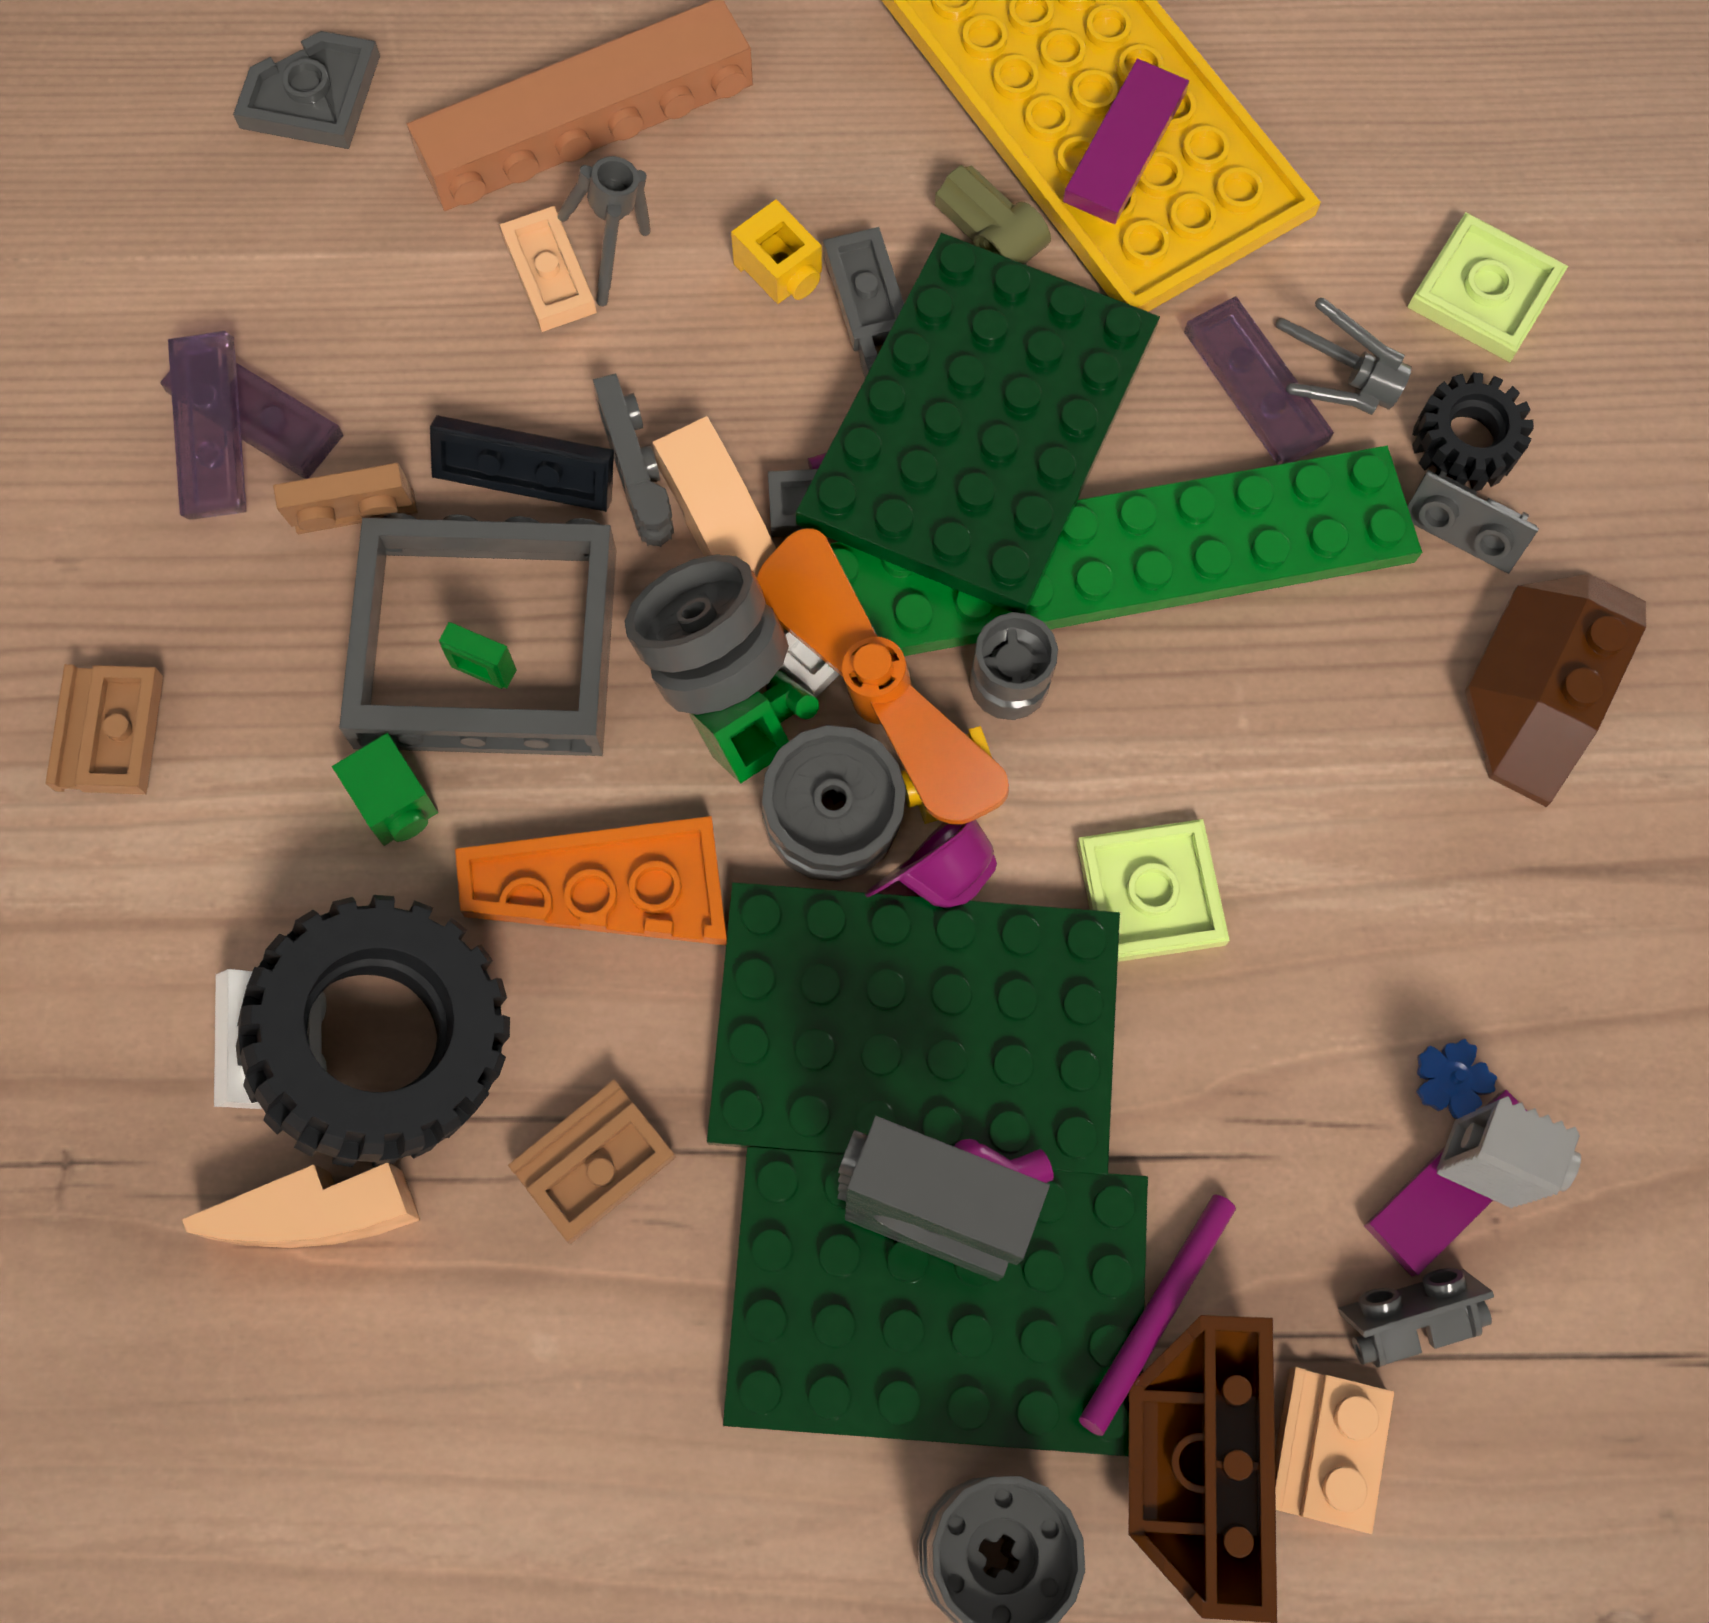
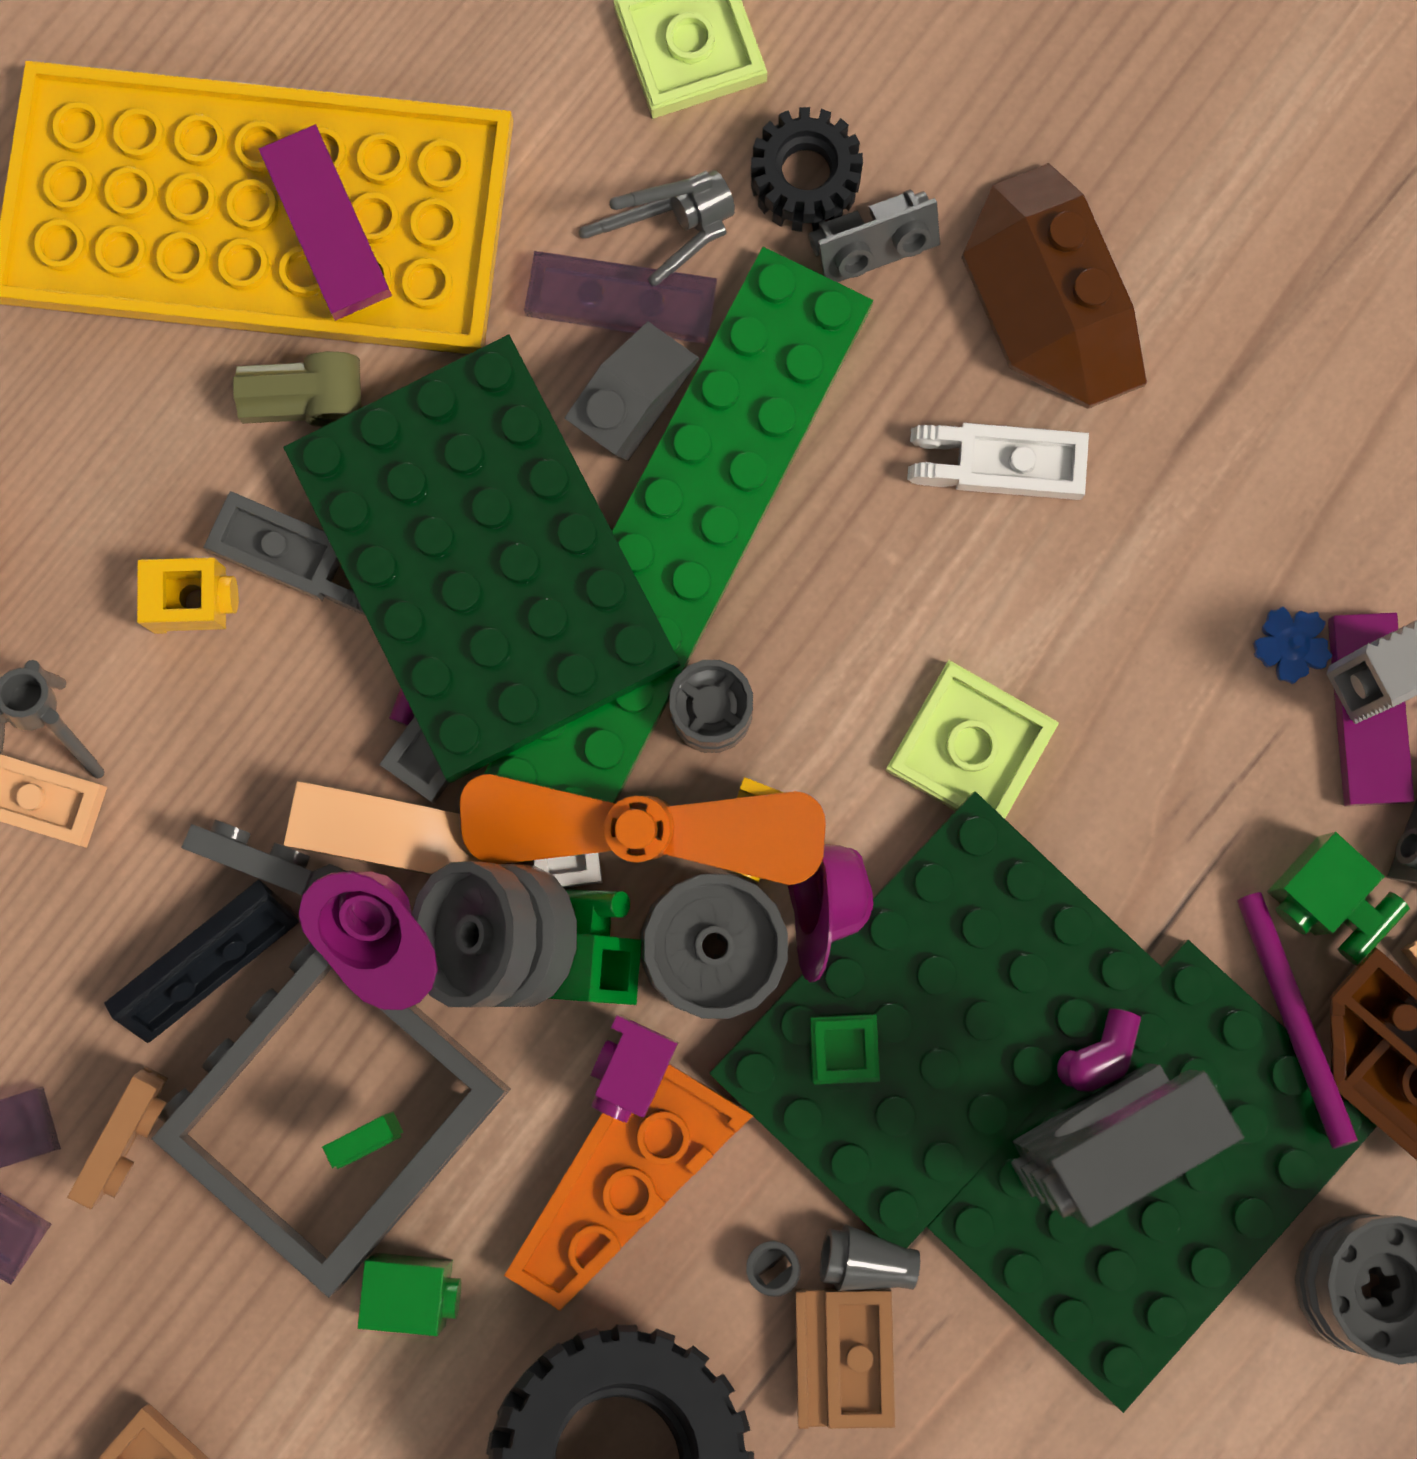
camera: 45 degrees left, 10 degrees up
(621, 1040) = (766, 1257): none -> dark grey hinge
(633, 544) = (370, 937): none -> magenta piece
(682, 1119) = (866, 1262): none -> dark grey cone
(688, 813) = (631, 1069): none -> magenta brick
(835, 962) = (844, 1049): none -> green tile
(1195, 432) = (632, 390): none -> dark grey slope
(1289, 1257) = (1330, 888): none -> green brick
(1391, 740) = (1005, 460): none -> white hinge

